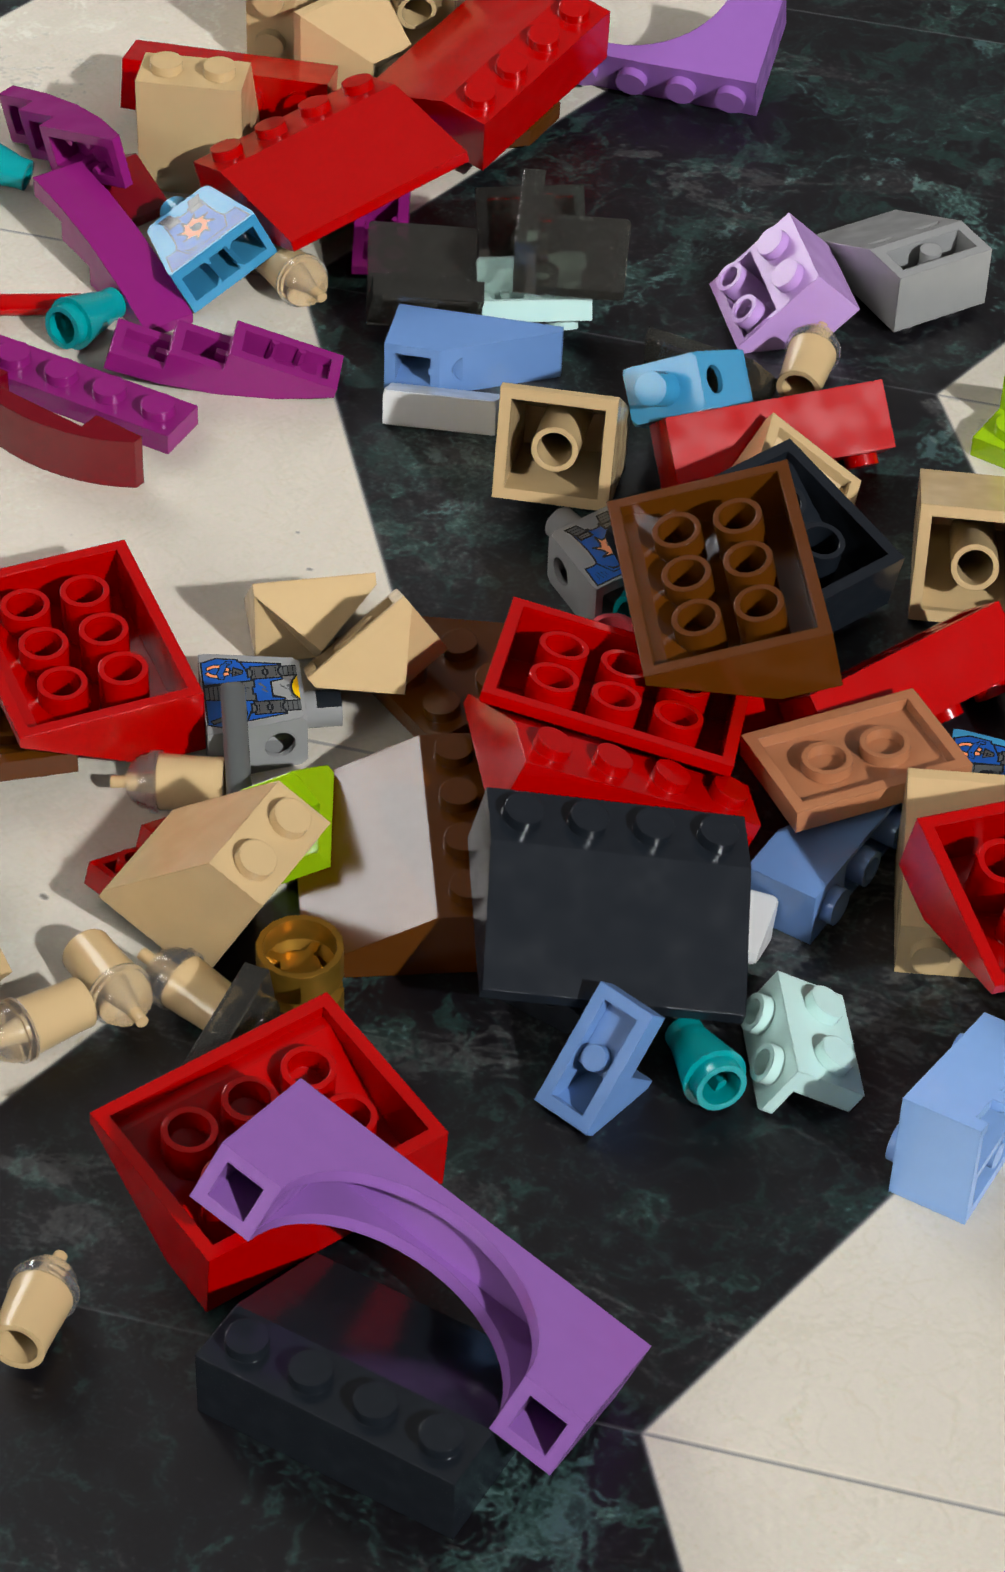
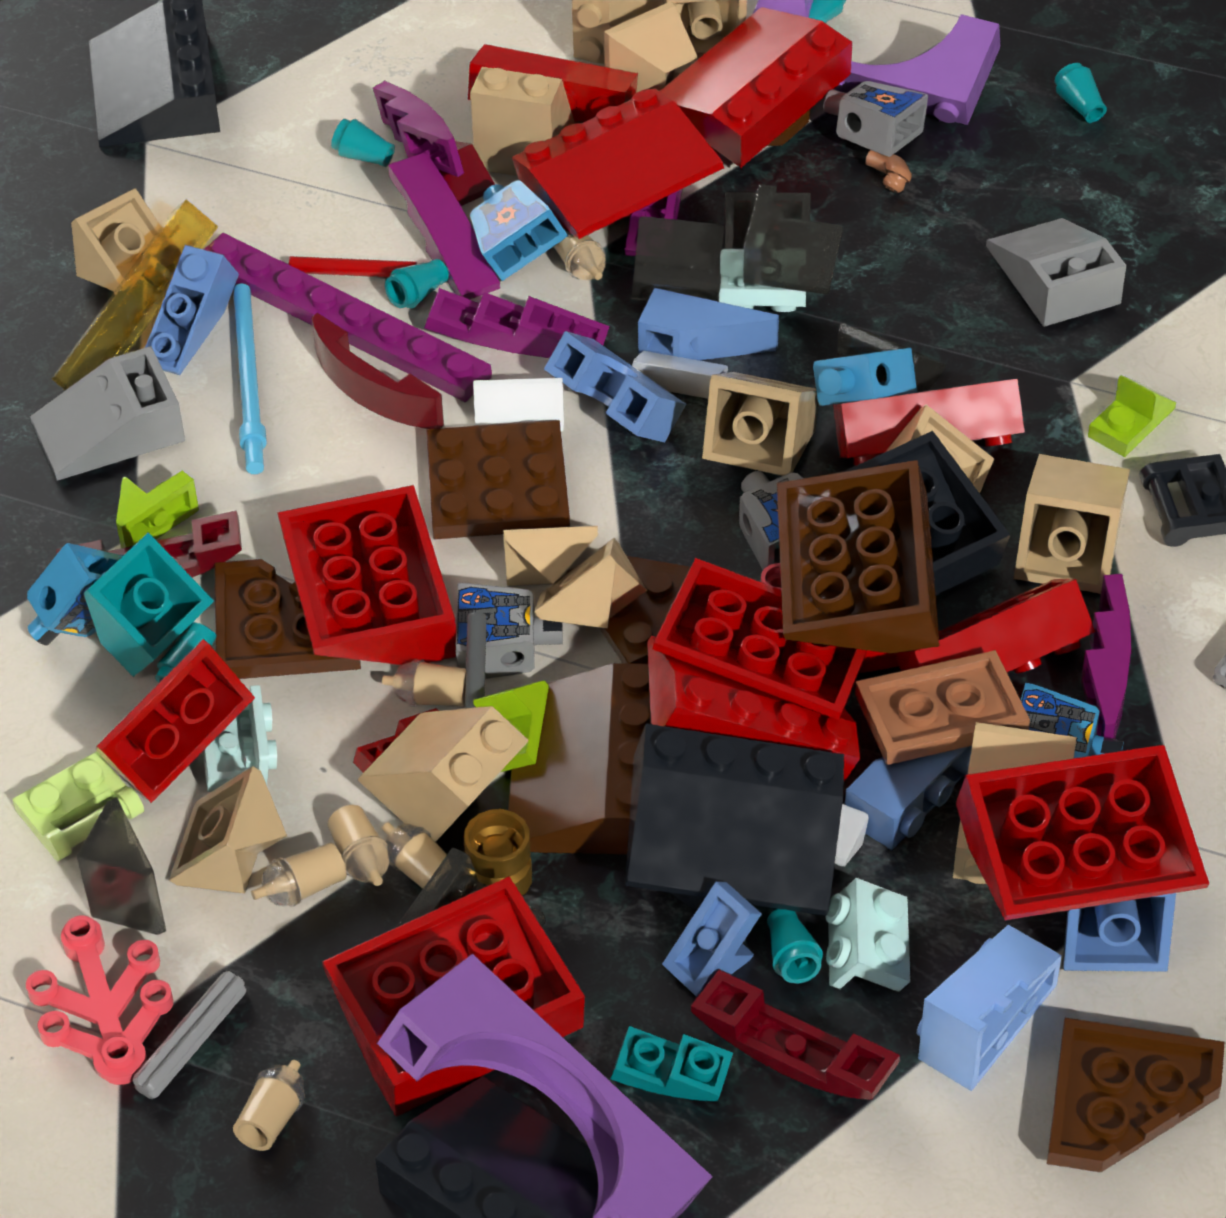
camera: 10 degrees right, 5 degrees up
(220, 533) = (497, 479): none -> reddish brown plate
(241, 450) = (518, 401): none -> white slope
(365, 420) = (629, 394): none -> medium blue arch
(586, 1226) = (671, 1069): none -> teal slope
(646, 103) = (878, 115): none -> light grey torso
(677, 165) = (895, 168): none -> nougat arm
(723, 1186) = (790, 1045): none -> dark red slope
(780, 286) = (960, 288): lavender slope -> none
(809, 358) = (971, 348): tan piece -> none
(890, 69) = (1079, 90): none -> teal cone

